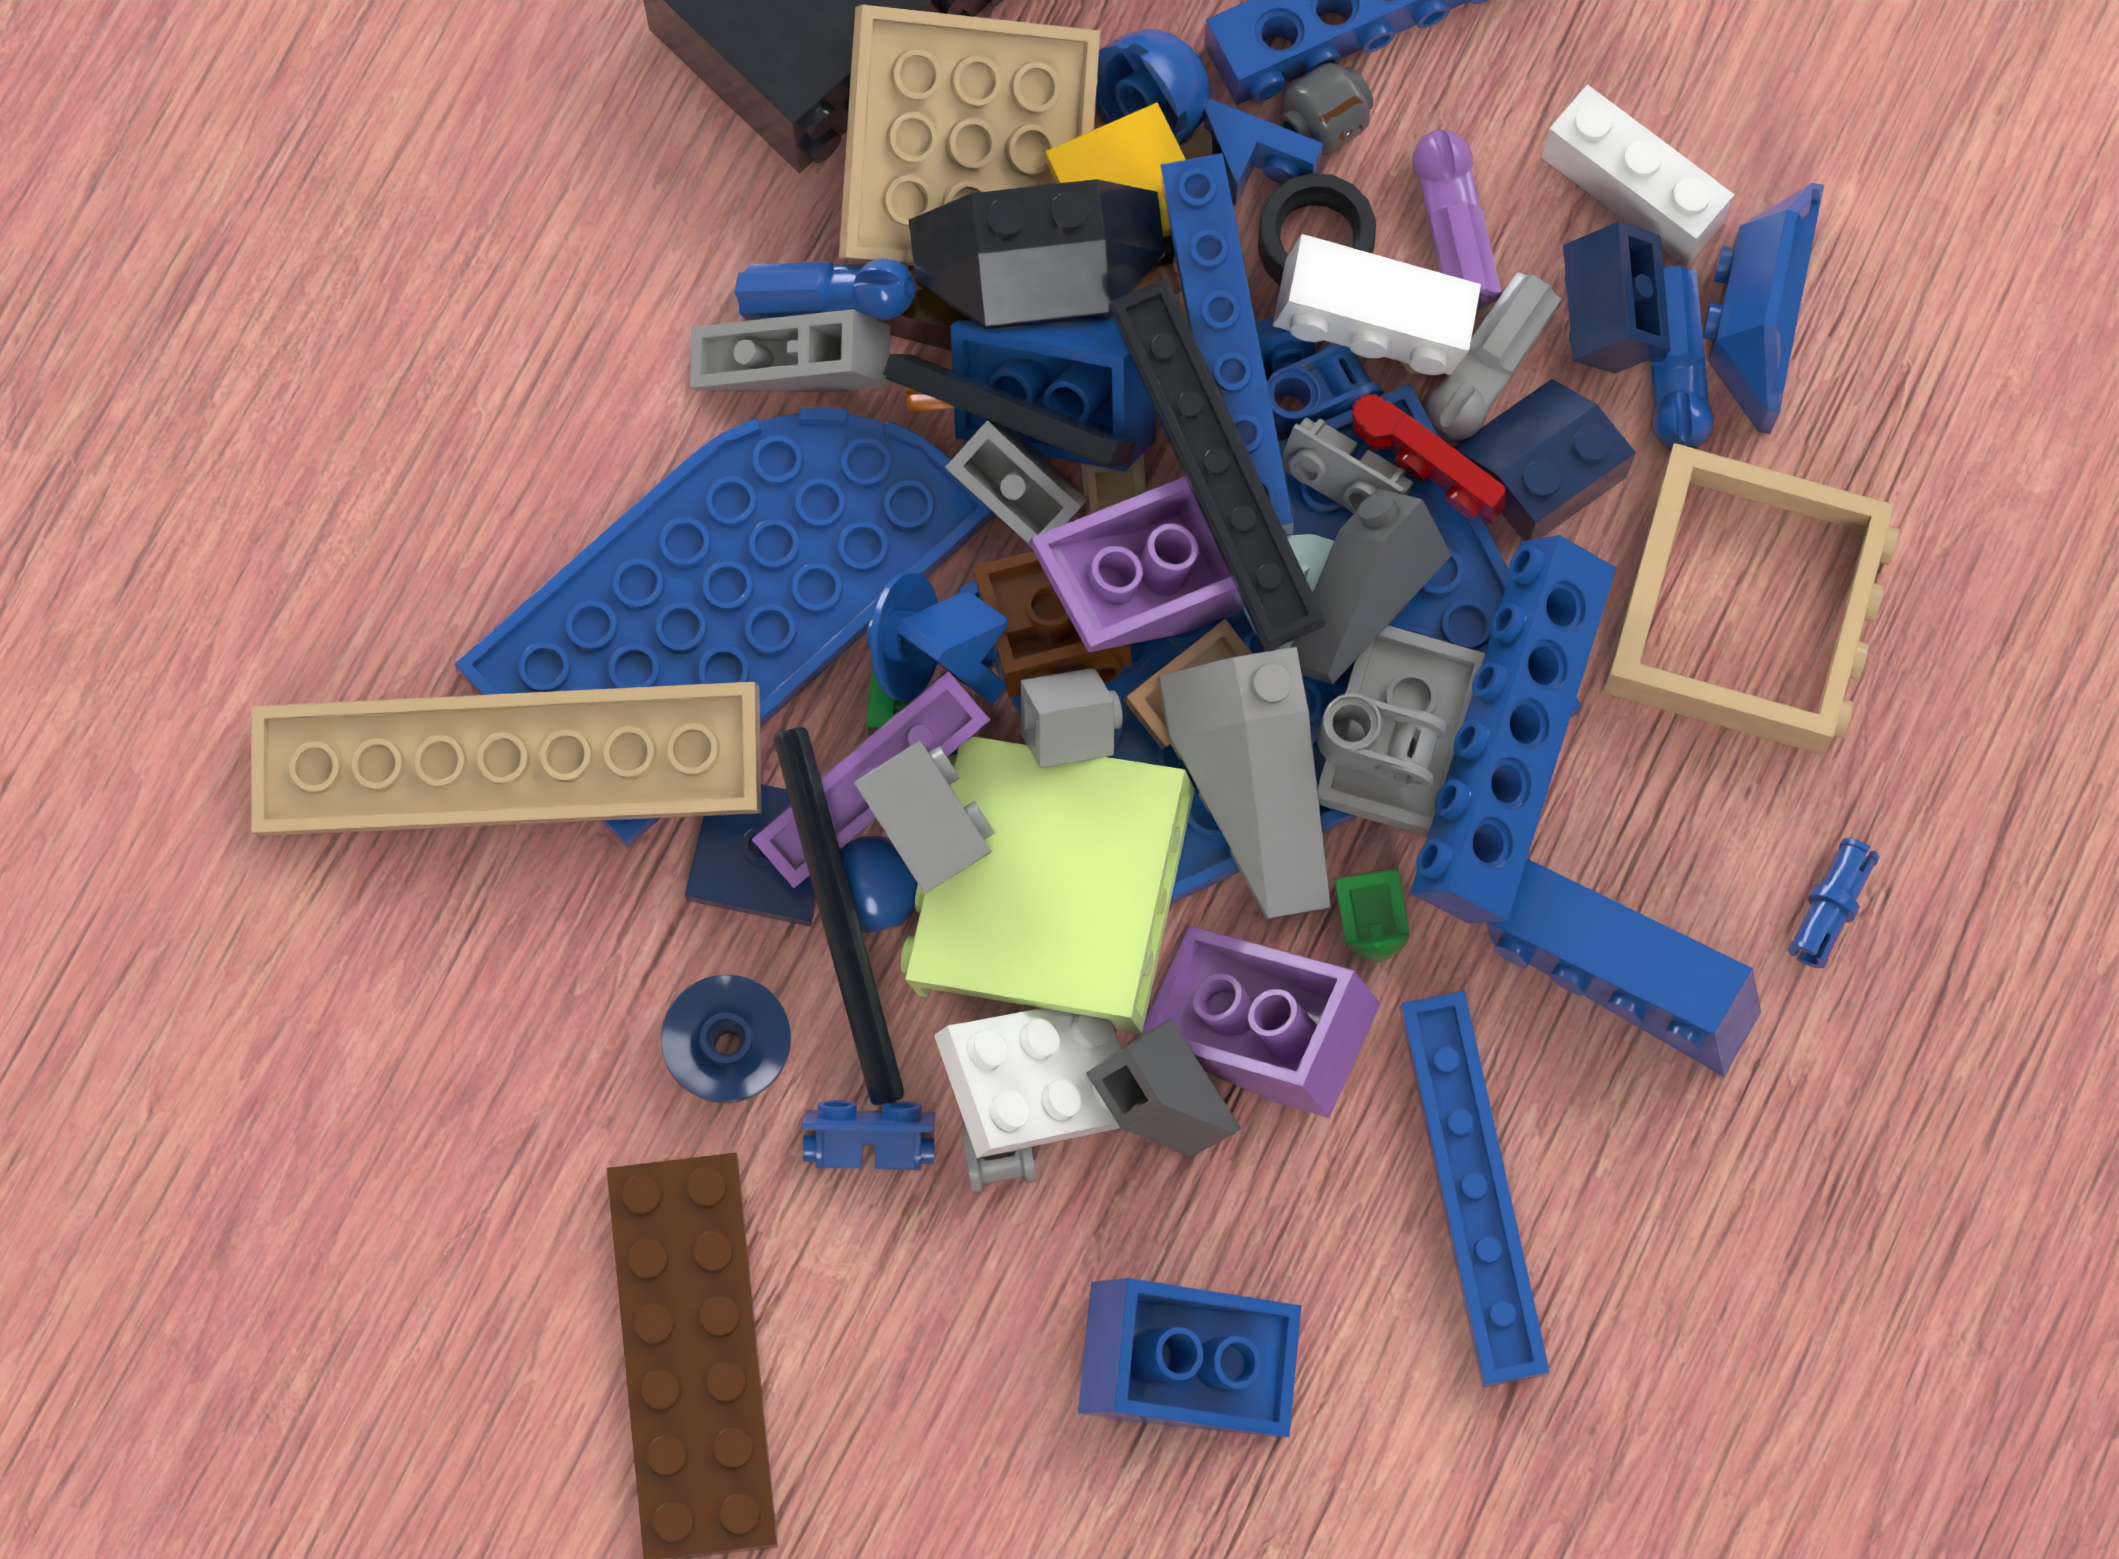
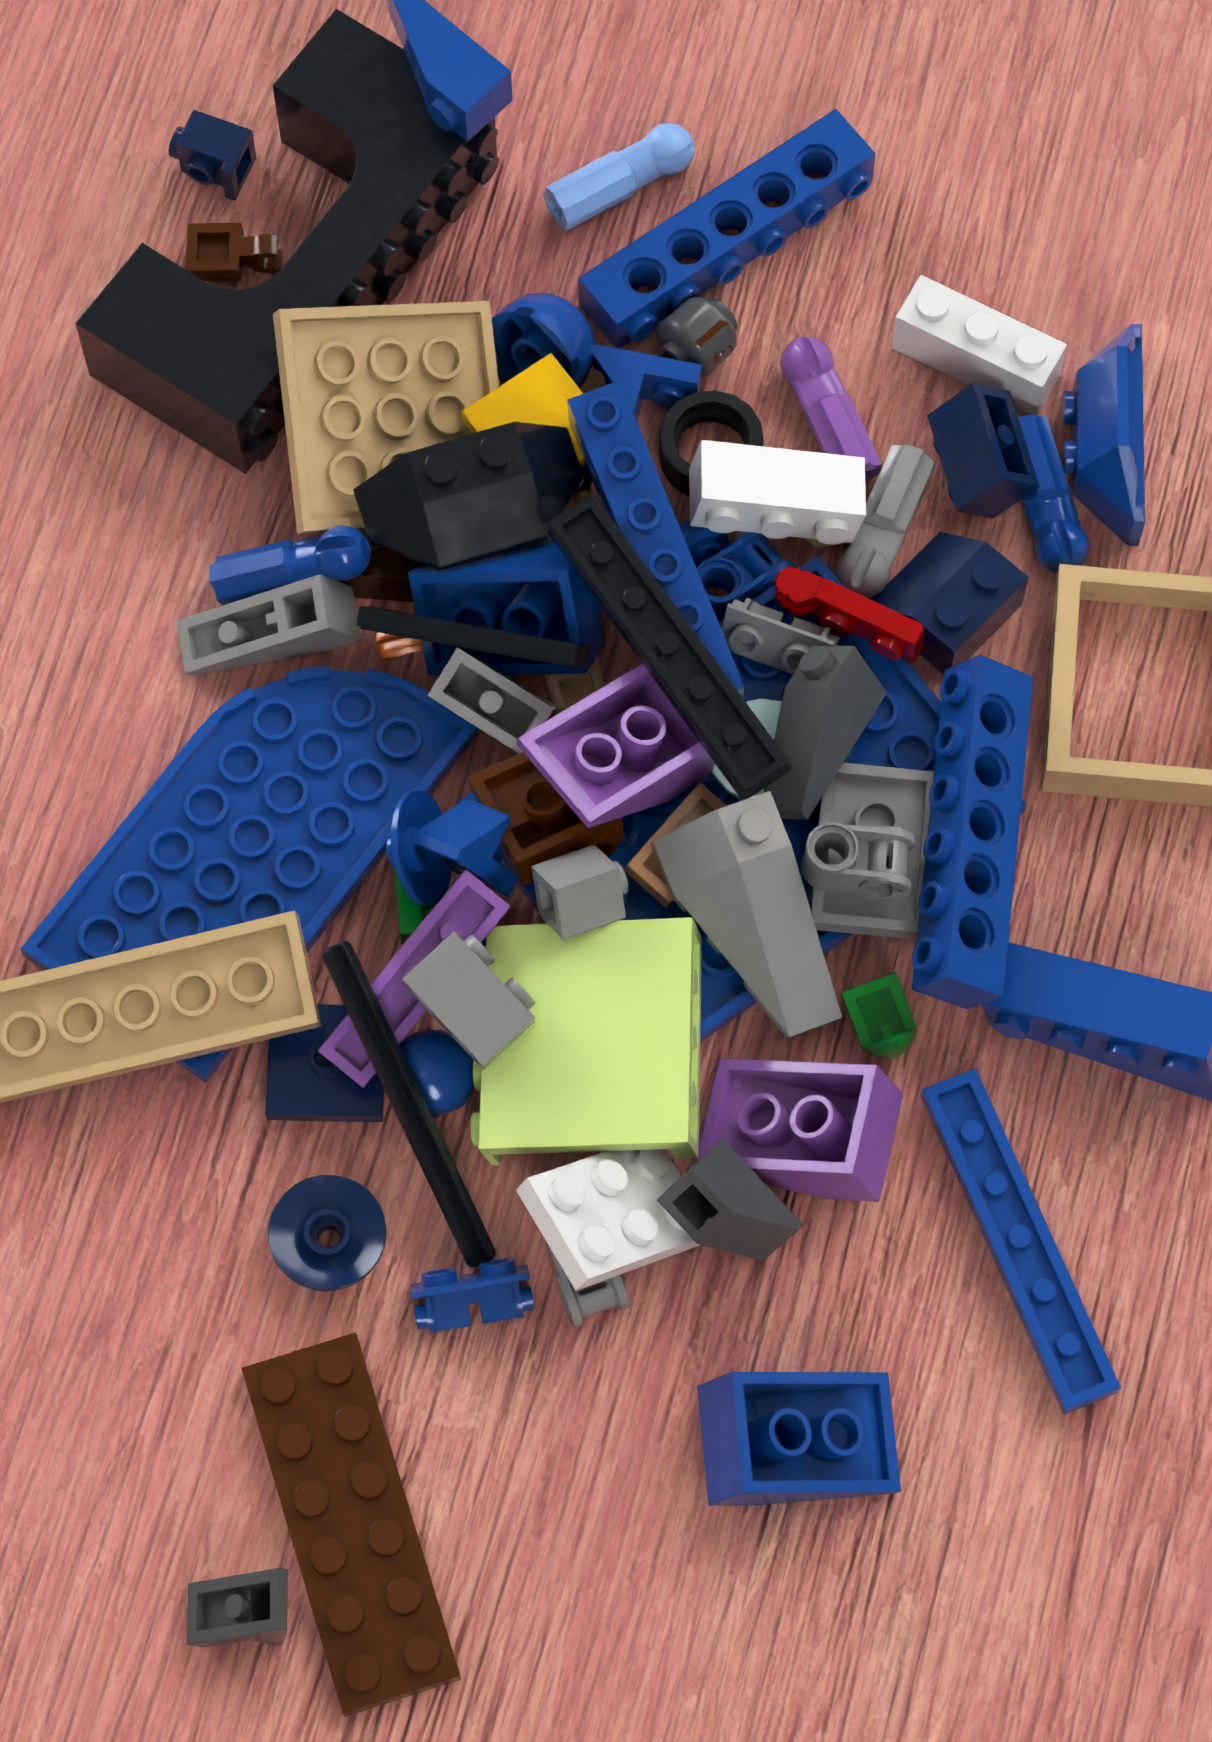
camera: 10 degrees left, 5 degrees down
(553, 1428) = (238, 1609): none -> dark grey slope

